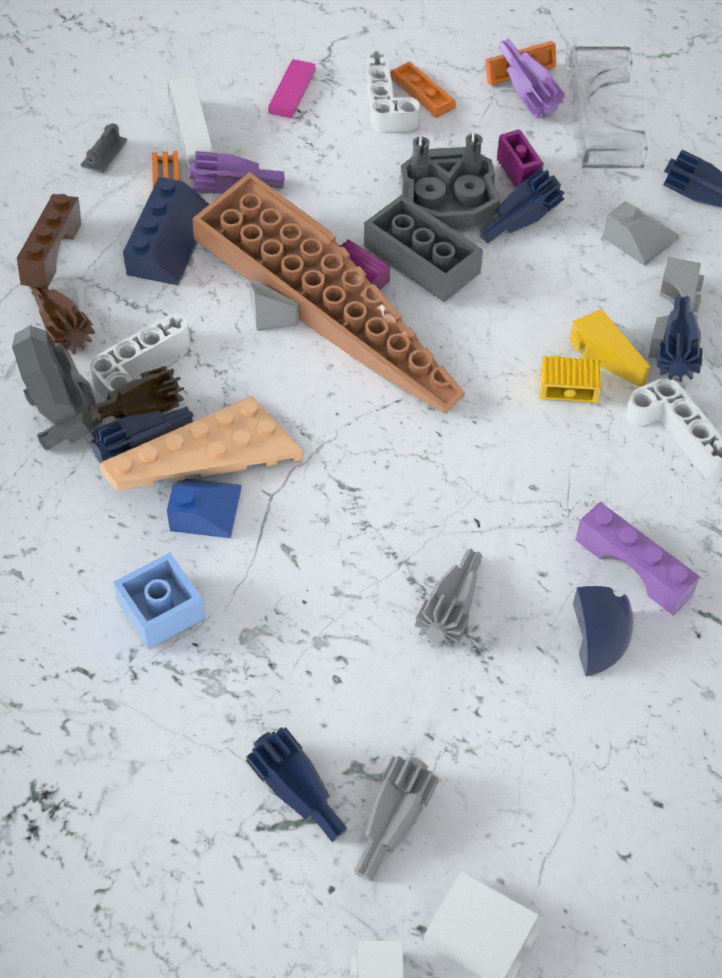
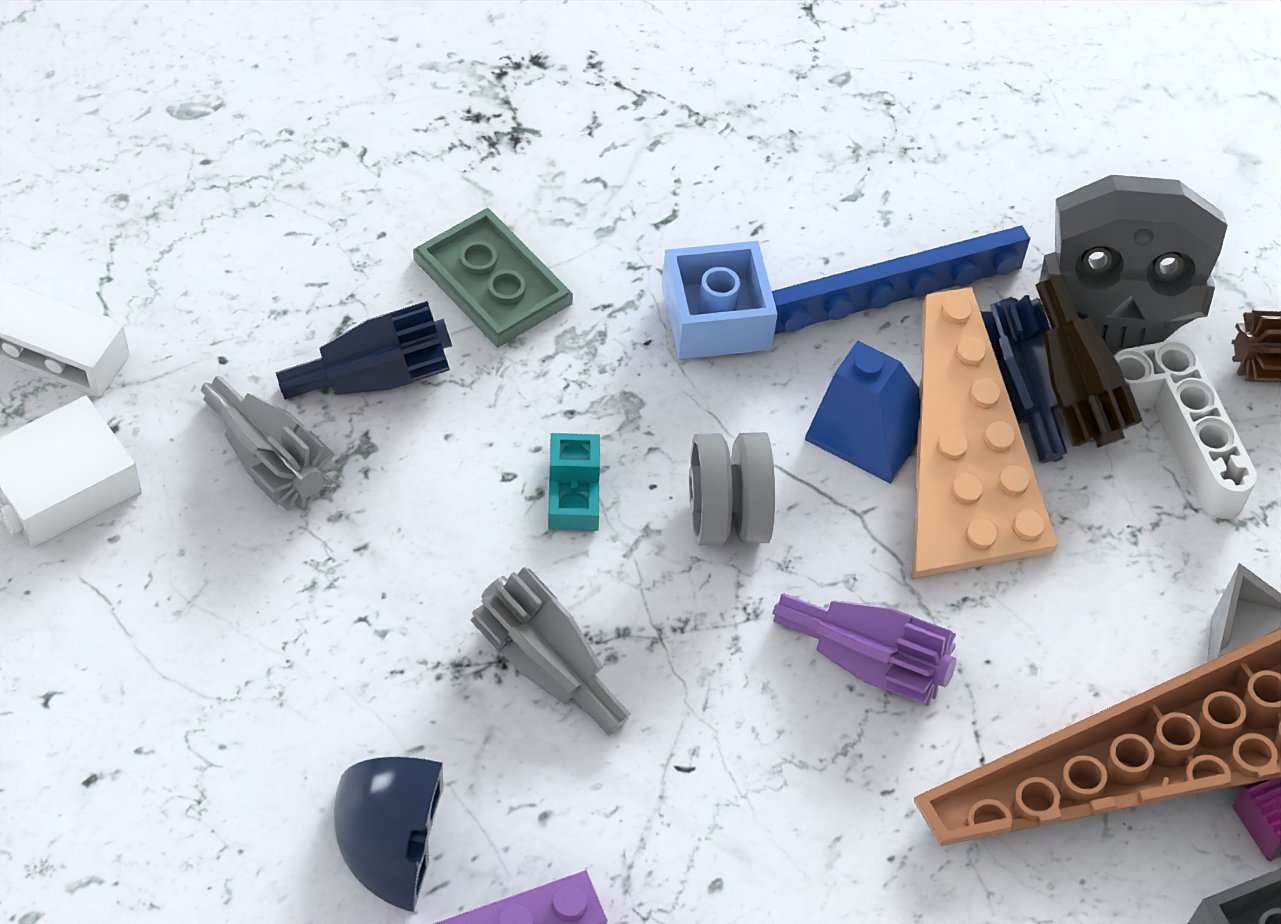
camera: 110 degrees right, 0 degrees up
(87, 513) = (900, 279): none -> blue plate
(184, 752) = (492, 277): none -> sand green tile
(307, 538) = (732, 487): none -> light grey wheel
(327, 639) = (574, 481): none -> teal slope
(365, 445) = (877, 644): none -> medium lavender piece

